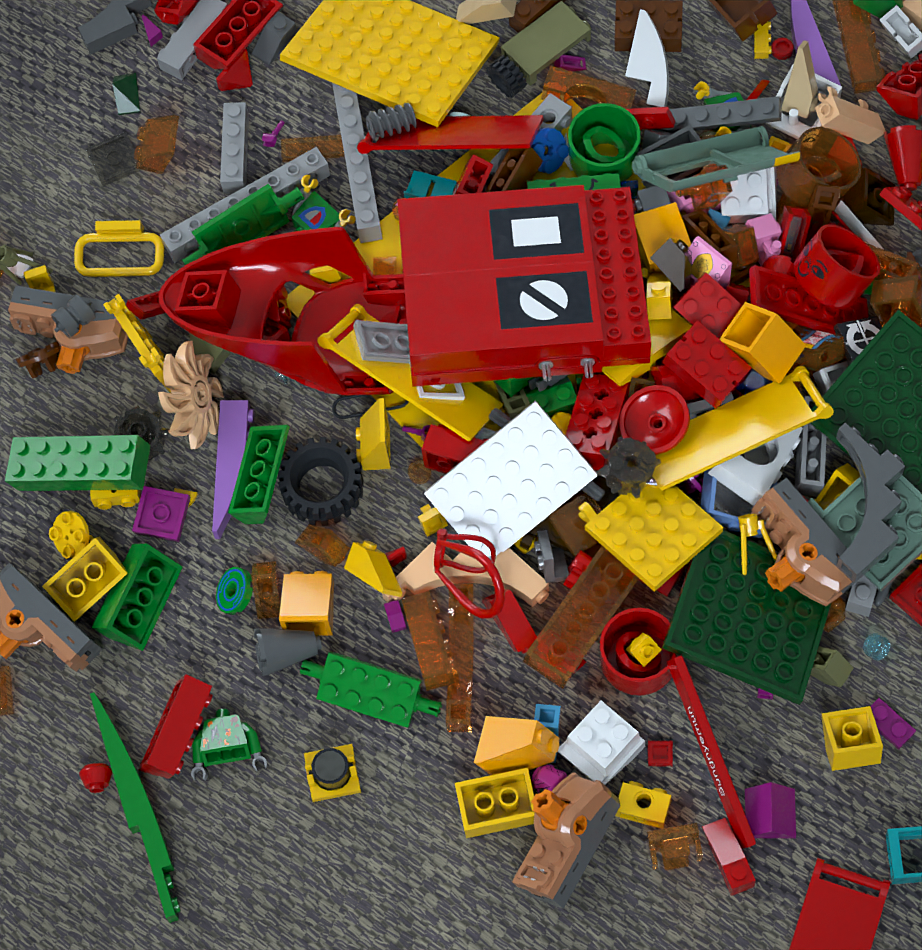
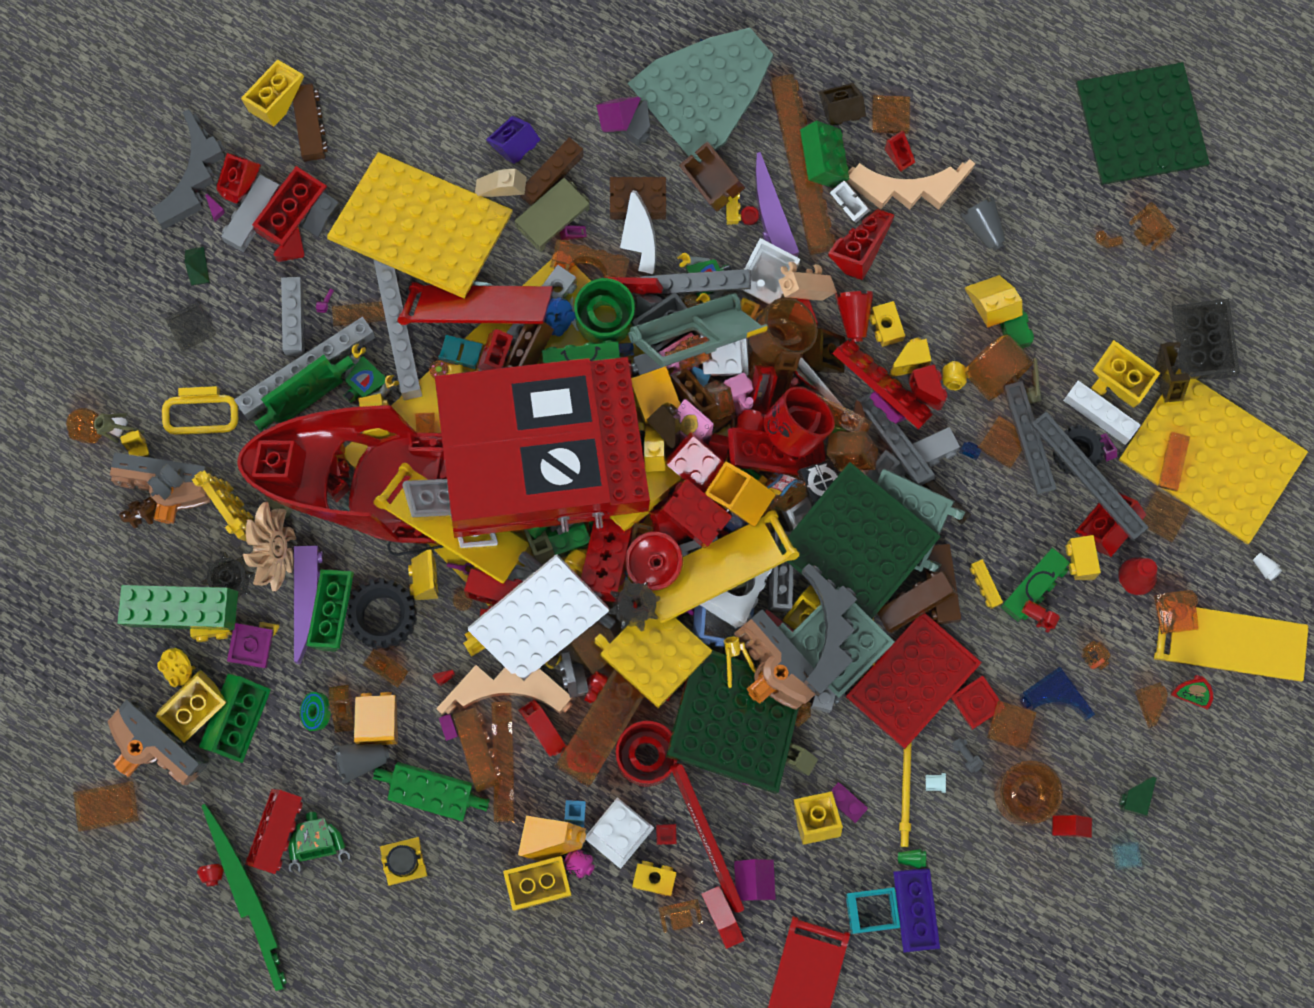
camera: 15 degrees left, 10 degrees up
(145, 306) = (227, 465): red plate -> none
(156, 143) = (226, 315): clear orange slope -> none
(372, 567) = (428, 691): yellow slope -> none
(390, 119) = (424, 295): dark grey piece -> none
(488, 564) = (507, 685): red animal -> none
(506, 76) = (520, 247): black tyre -> none
(569, 830) = (595, 908): nougat piece -> none
(643, 649) = (650, 753): yellow bracket -> none
(758, 90) = (730, 256): red piece -> none
(802, 84) = (768, 258): tan slope -> none
(876, 646) = (836, 740): clear light blue wheel -> none

